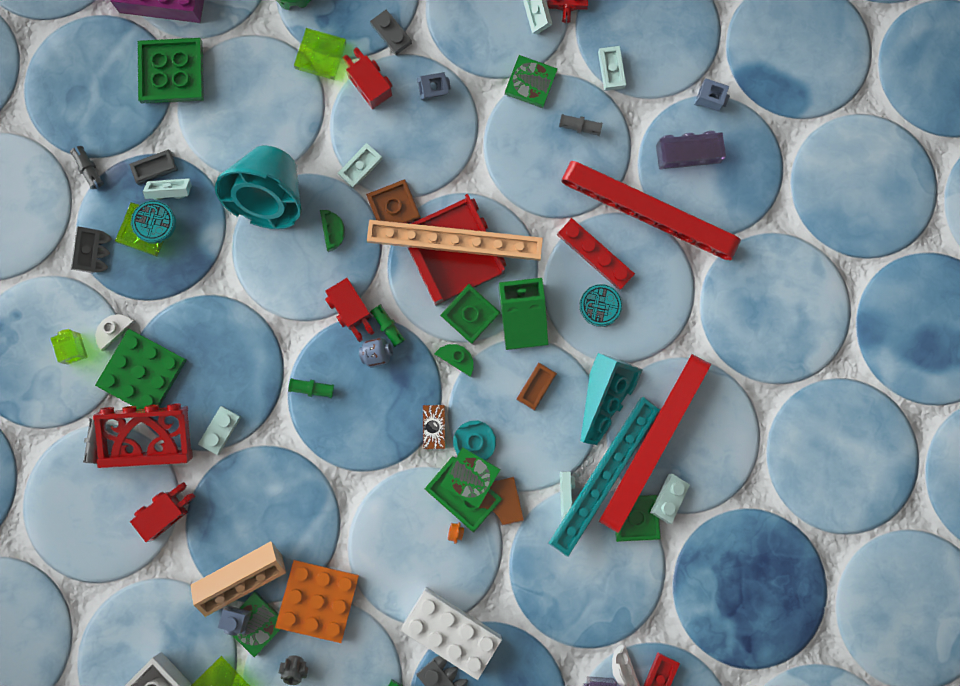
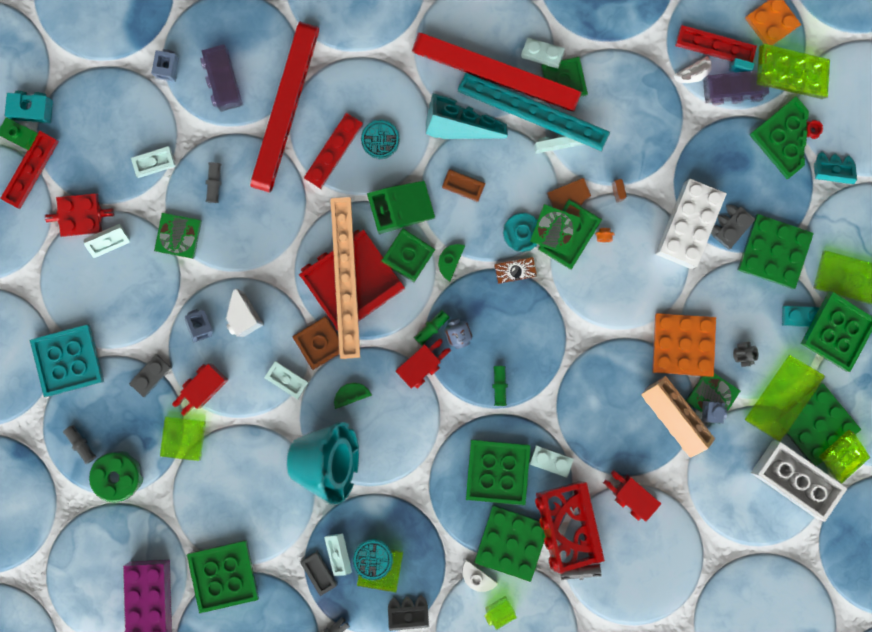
camera: 95 degrees left, 5 degrees up
(219, 370) = (498, 472): none -> green plate
(435, 129) = (242, 315): none -> white slope
(502, 557) = (619, 190): none -> dark orange tile

